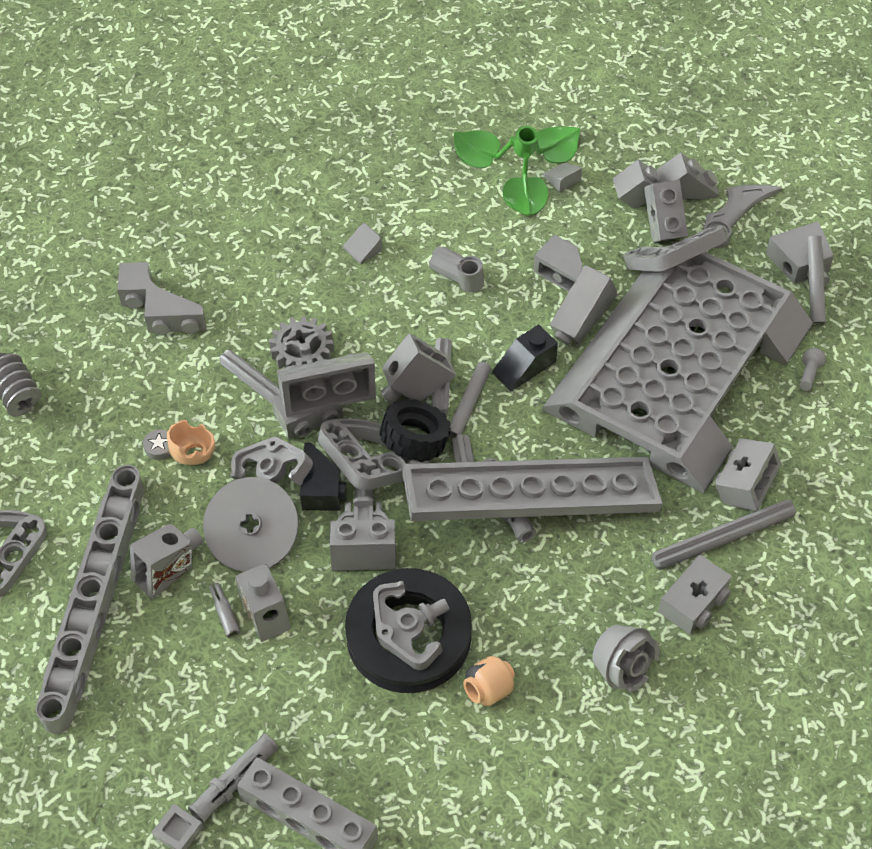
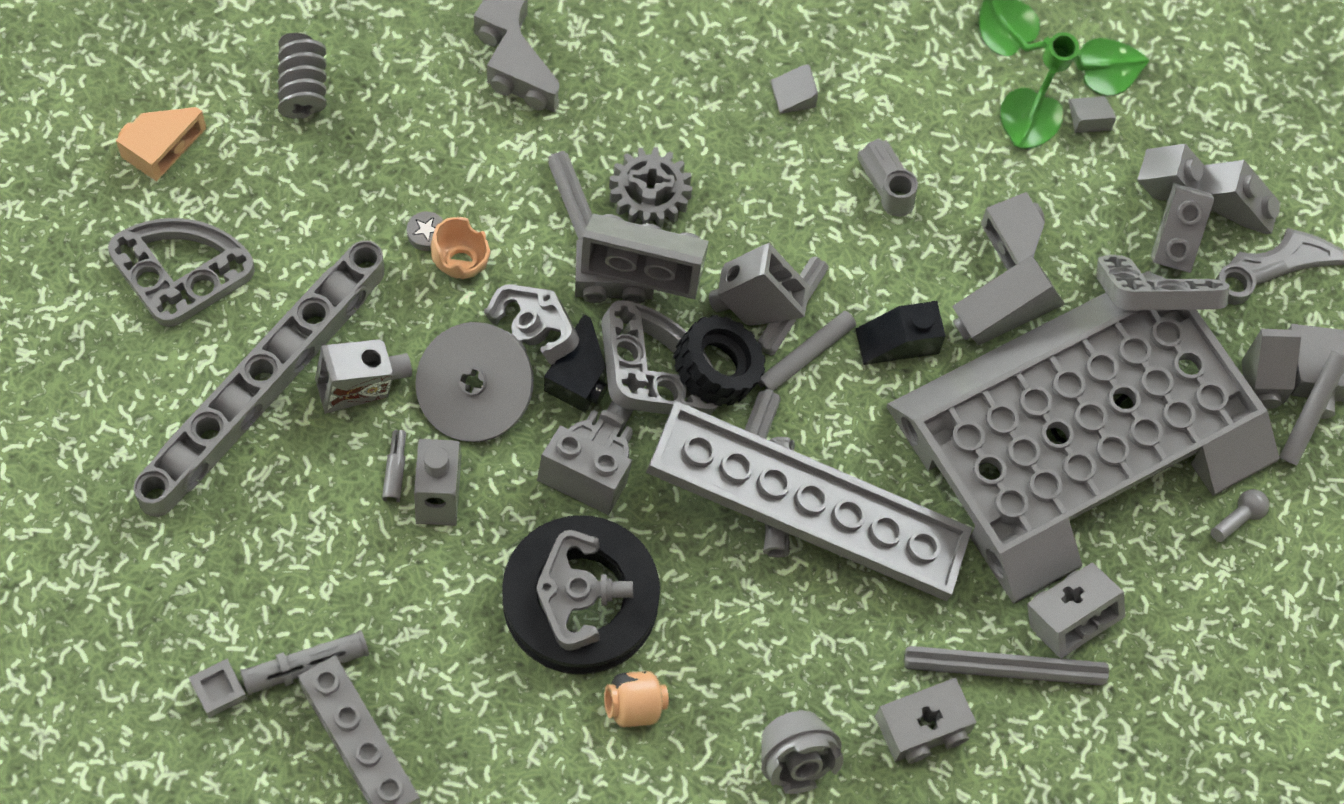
camera: 20 degrees right, 10 degrees up
(775, 262) = (1272, 365): none -> light grey slope

